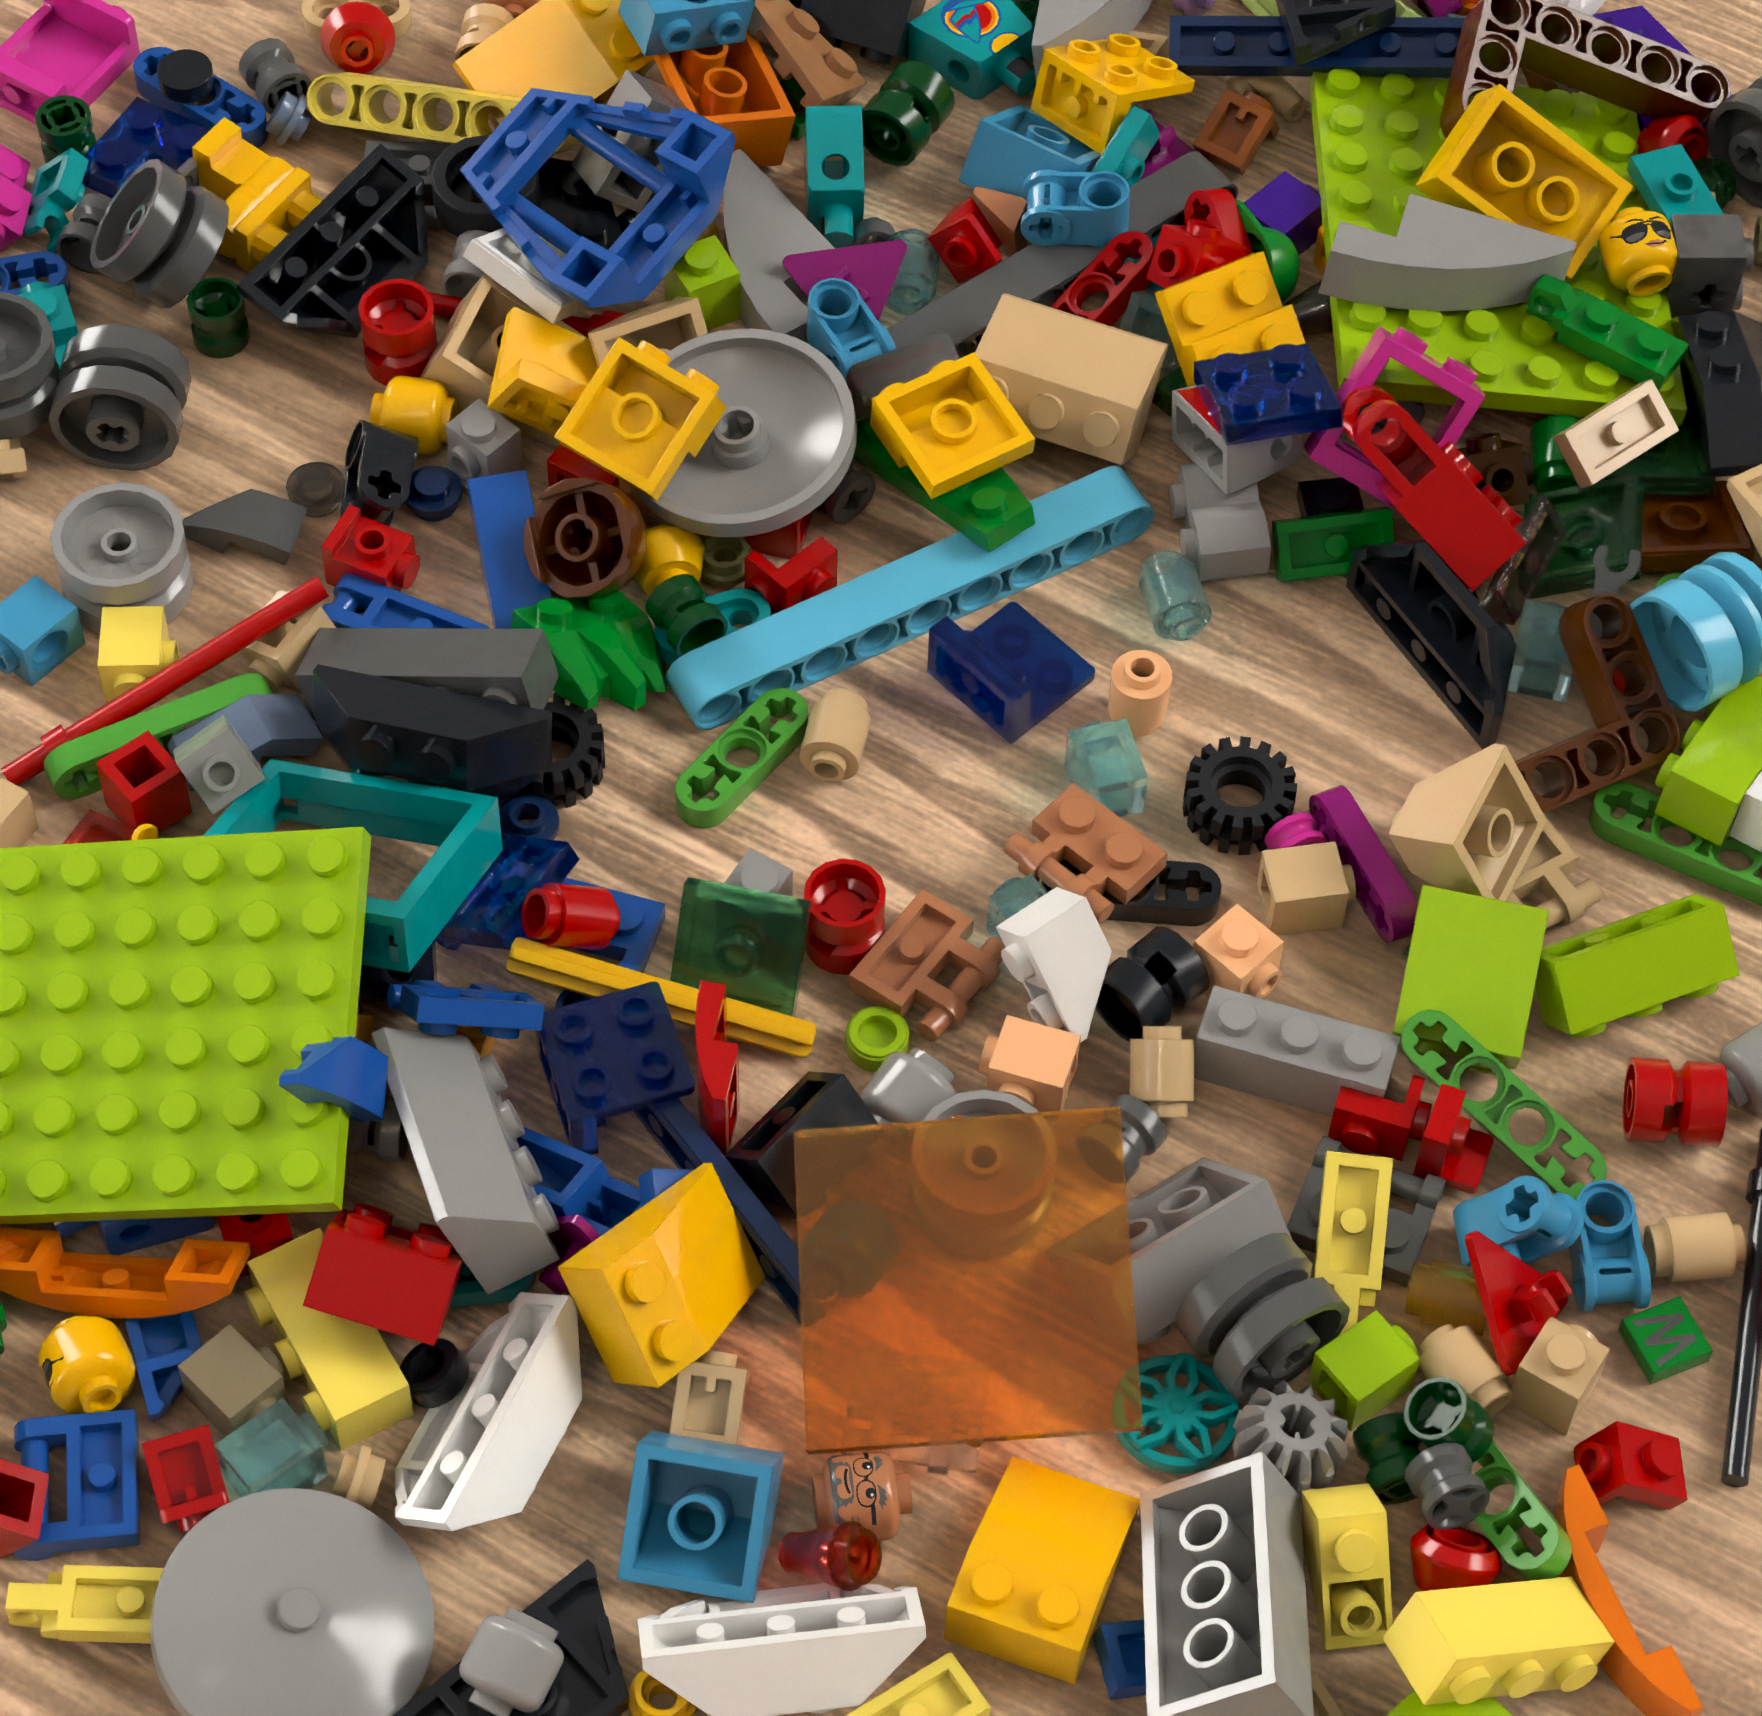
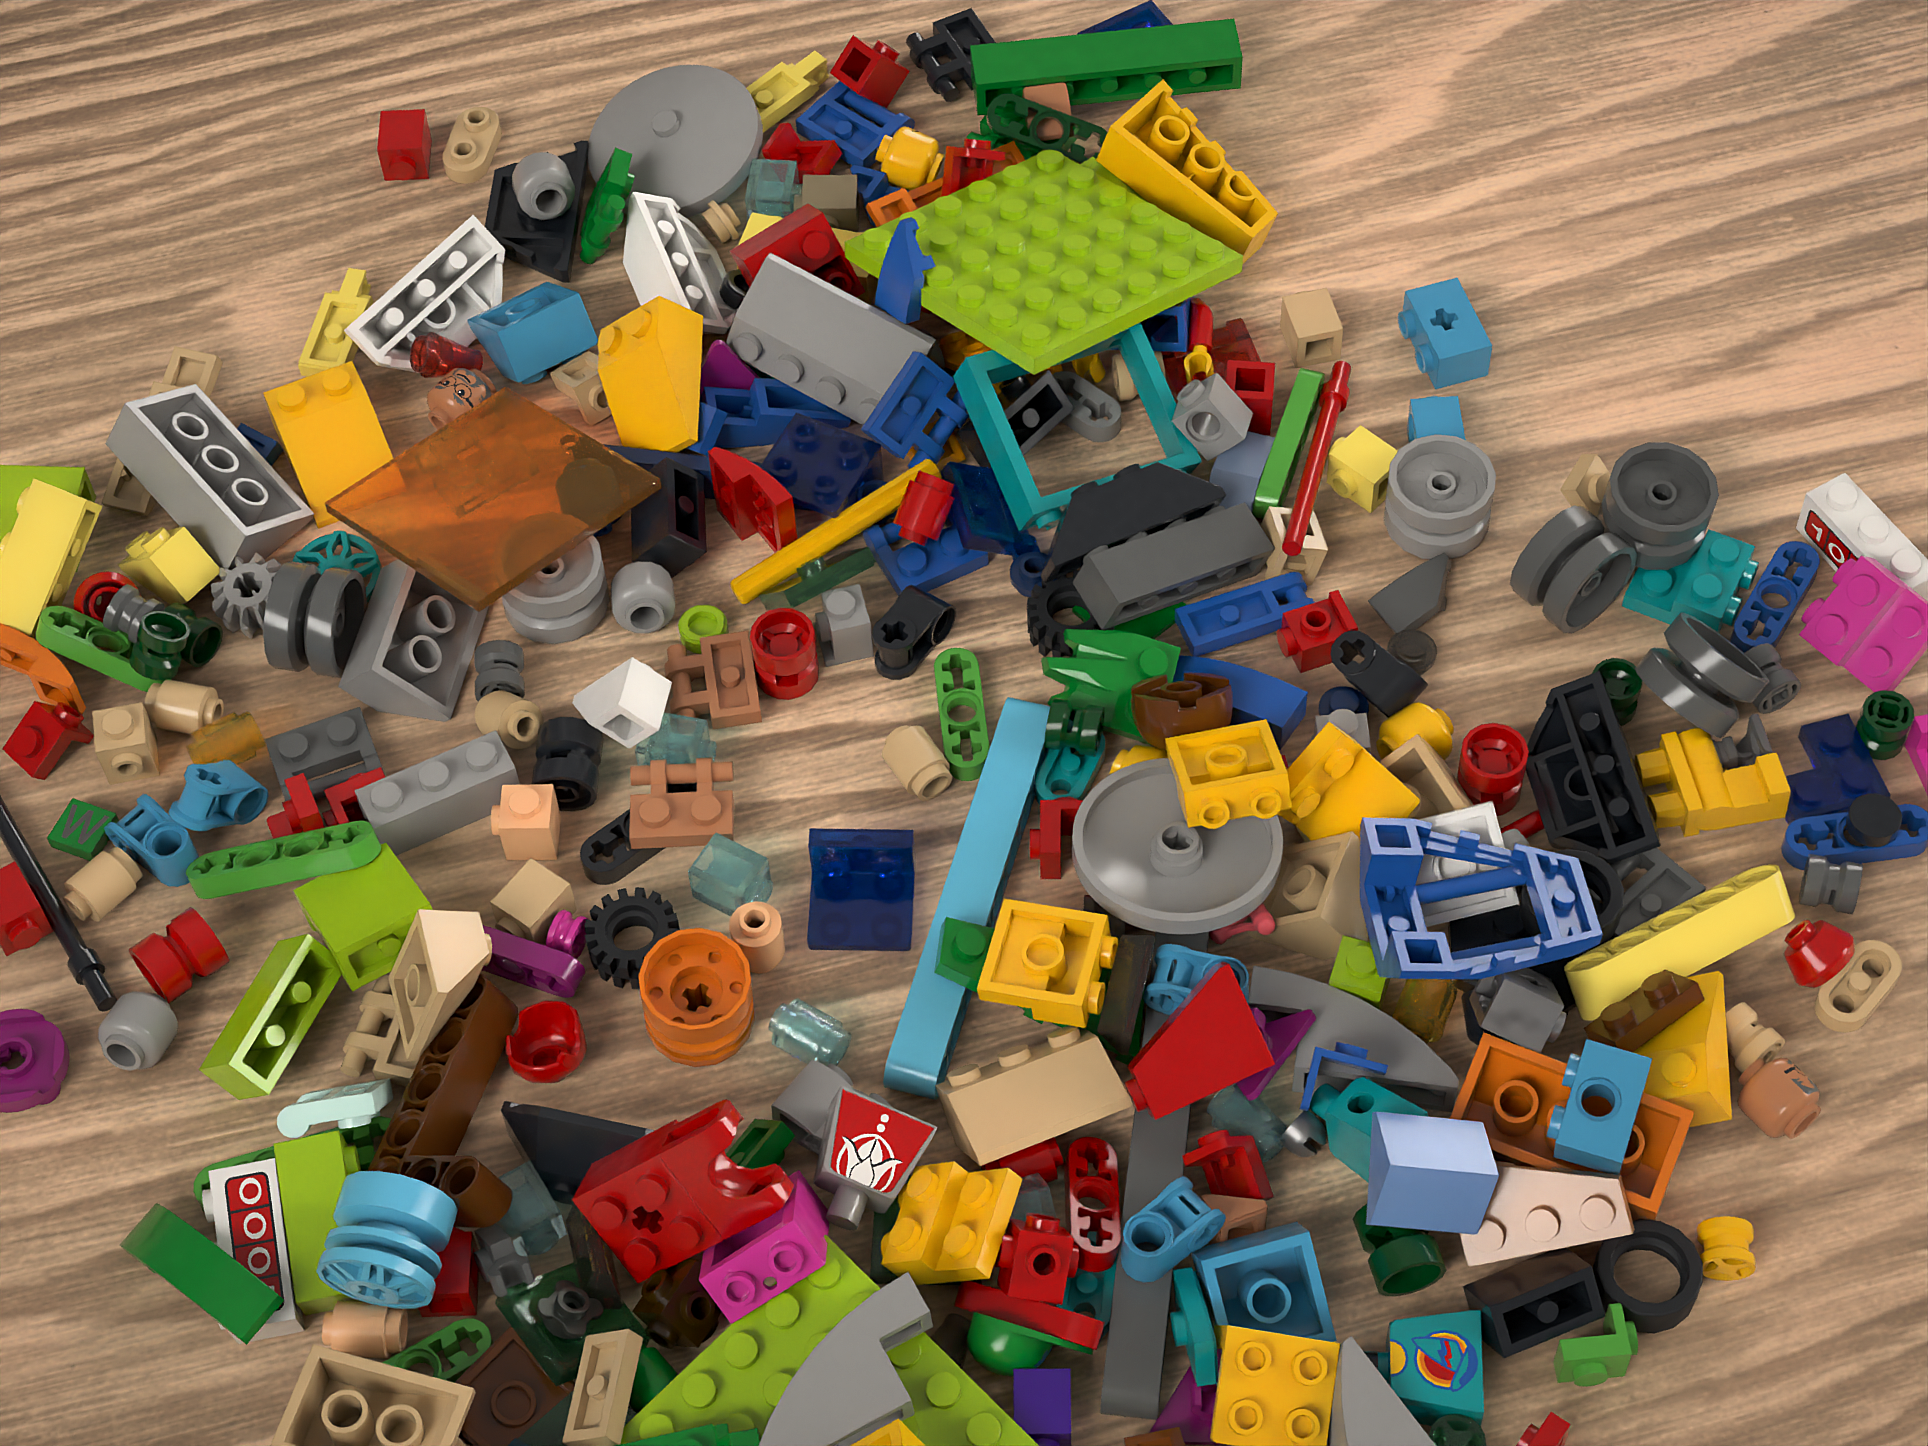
camera: 140 degrees right, 0 degrees up
(54, 192) = (1830, 685): teal plate -> none
(60, 1241) = (968, 164): none -> red bracket
(289, 118) = (1777, 855): sand blue plate -> none
(453, 1583) = (606, 206): none -> green plate
(551, 67) = (1646, 1011): none -> reddish brown plate
(697, 850) = (910, 632): none -> black piece
(818, 206) = (1344, 1055): none -> blue bracket
(852, 69) = (1429, 1173): none -> medium blue slope
(919, 269) = (1199, 1048): none -> red slope
(1031, 1063) = (586, 661): light nougat brick -> none
(1247, 667) = (693, 971): none -> orange wheel
(1267, 394) = (857, 1156): clear blue plate -> none
(1353, 1227) = (309, 710): light yellow hinge -> none
(1365, 1369) = (241, 666): lime brick -> none
(1403, 751) = (547, 1042): none -> red hair
(1513, 1298) = (177, 745): red piece -> none
(1589, 511) = (568, 1310): none -> pearl dark grey plate
(1627, 813) = (347, 1104): none -> light aqua plate

